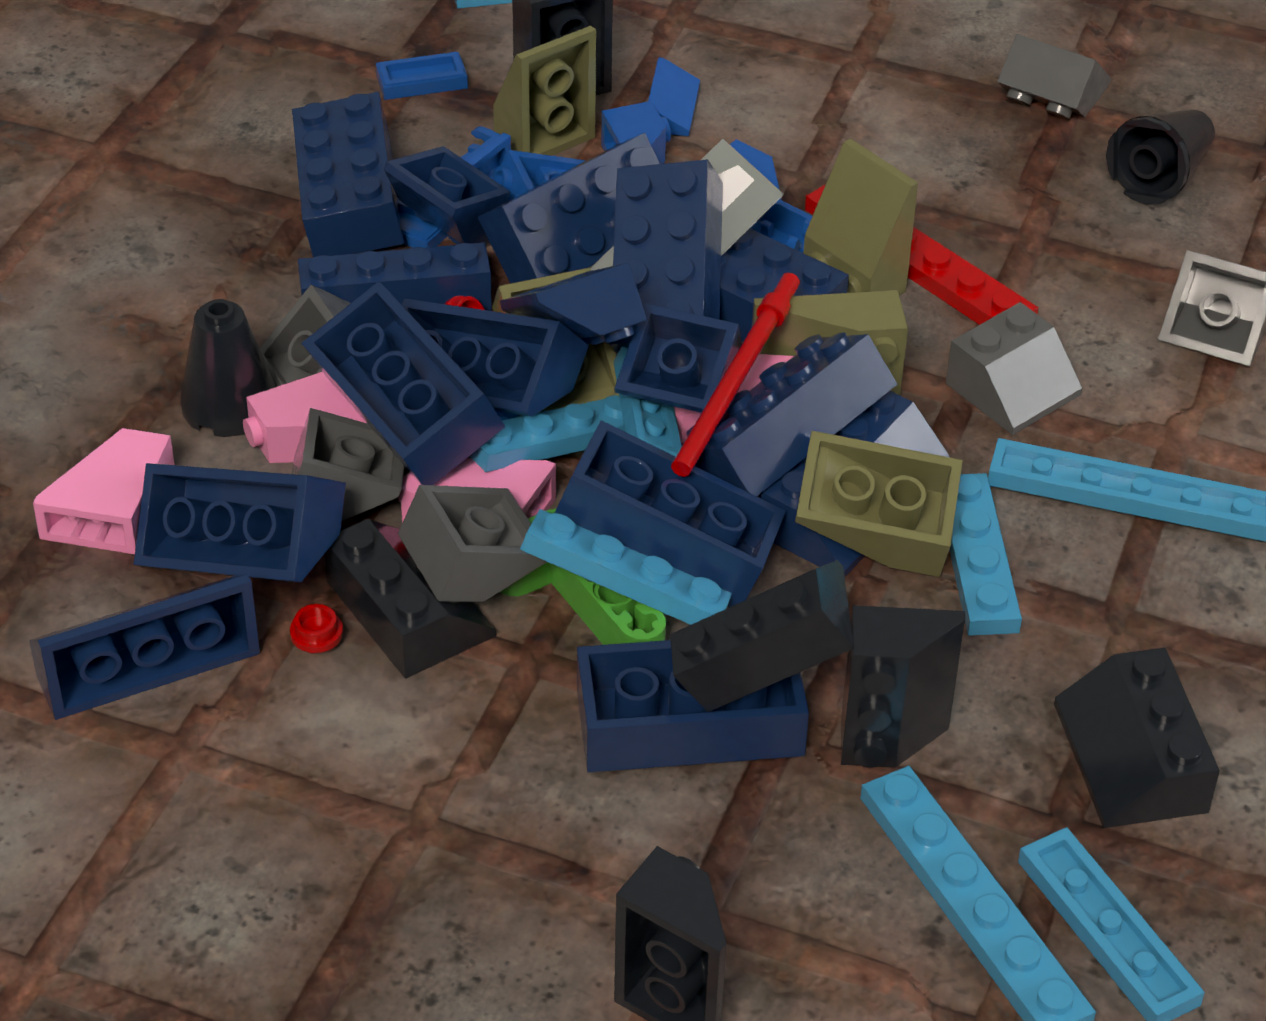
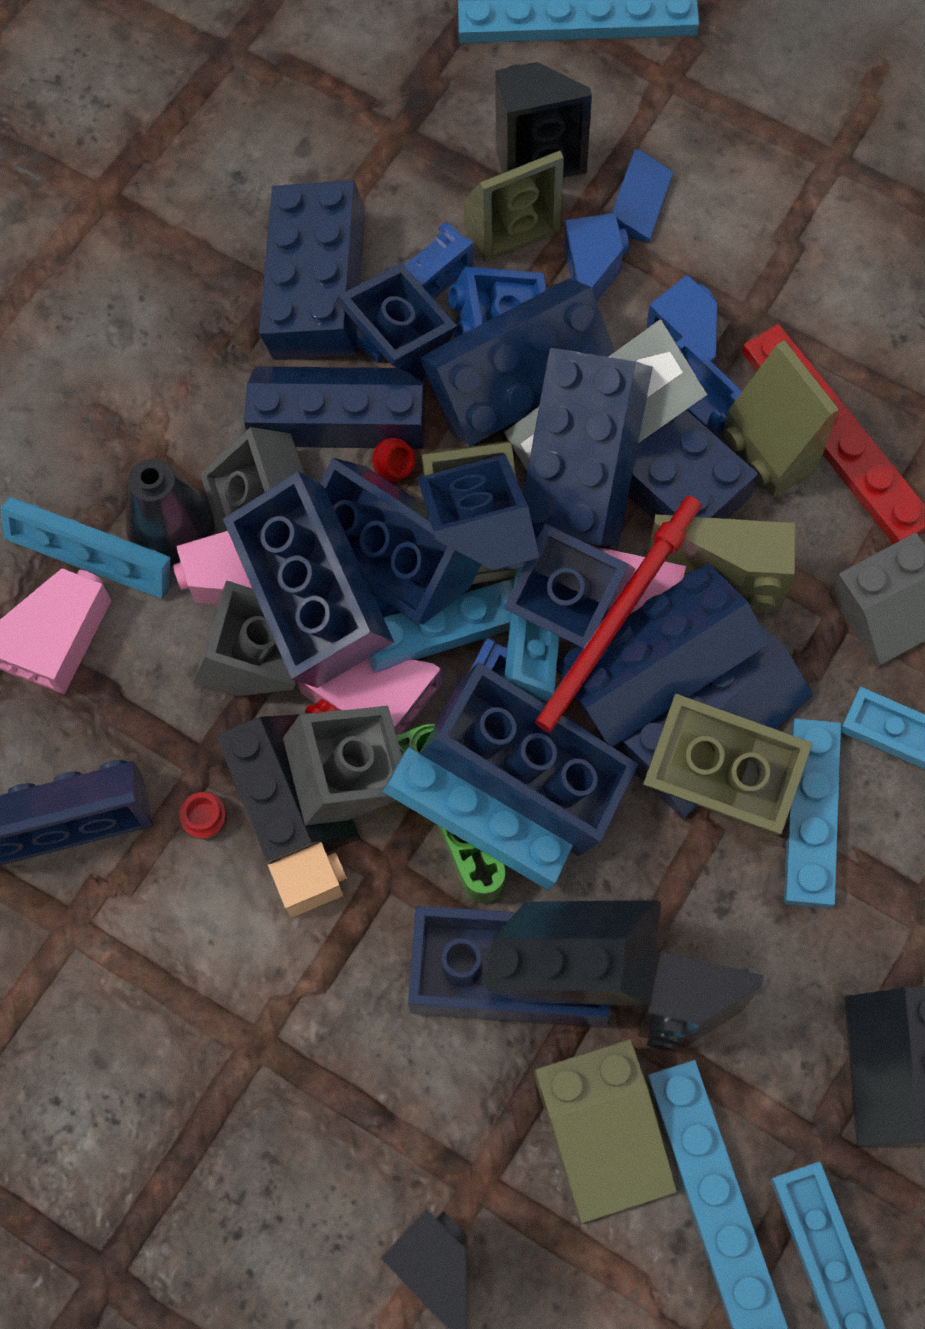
camera: 15 degrees right, 25 degrees up
(103, 411) = (86, 547): none -> dark azure plate
(236, 521) = (144, 701): dark blue slope -> none
(421, 75) = (409, 133): blue tile -> none
(446, 665) = (307, 879): none -> light nougat brick
(825, 834) = (605, 1131): none -> olive slope

